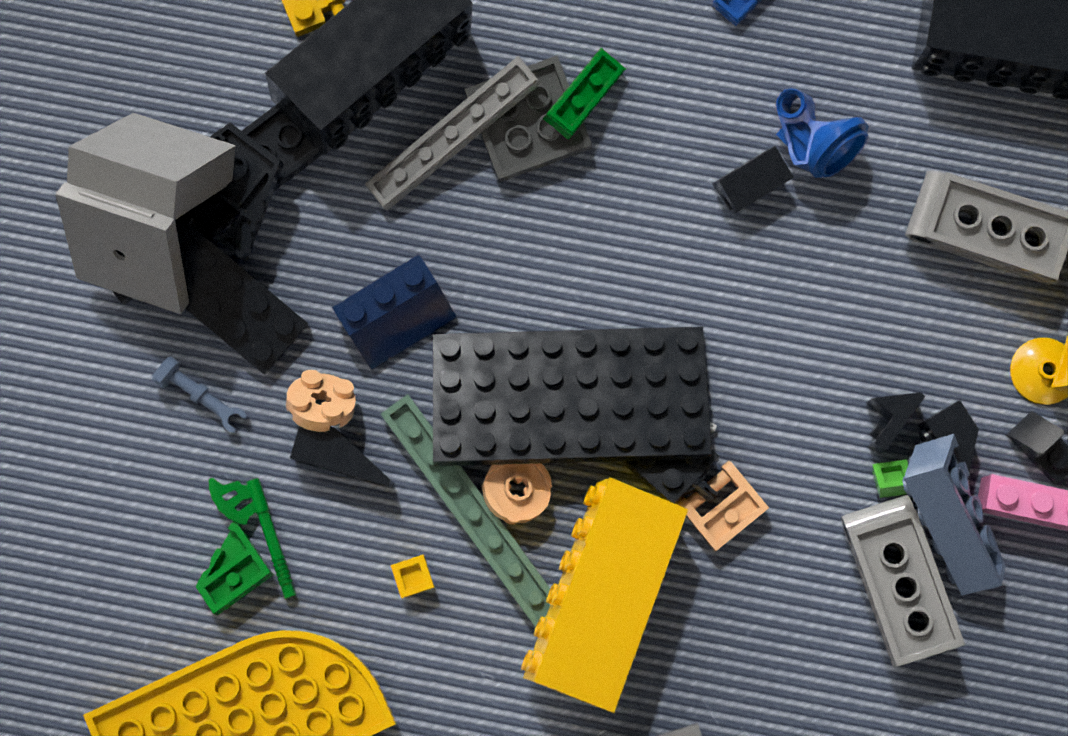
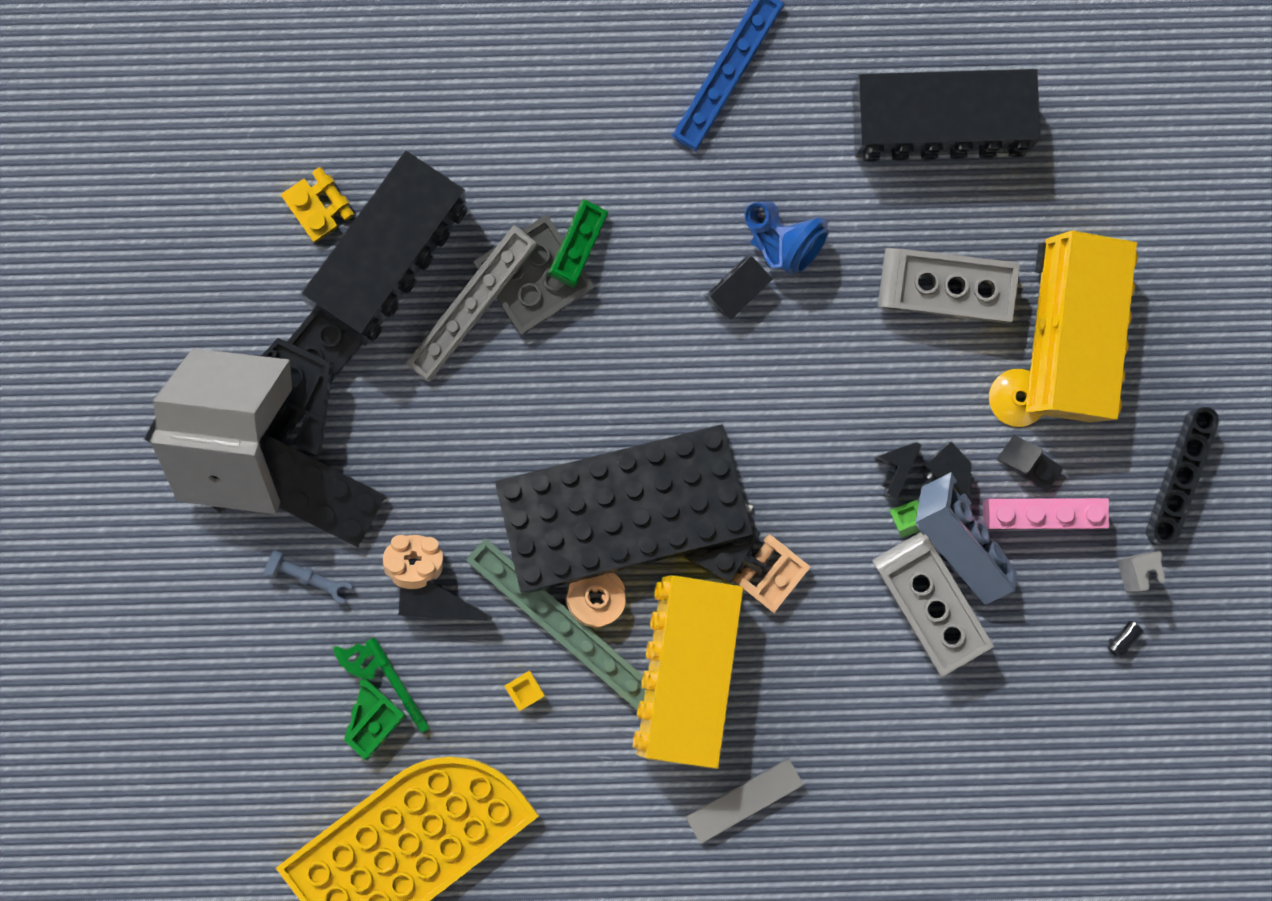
camera: 20 degrees left, 5 degrees up
(395, 312) = (457, 470): dark blue slope -> none

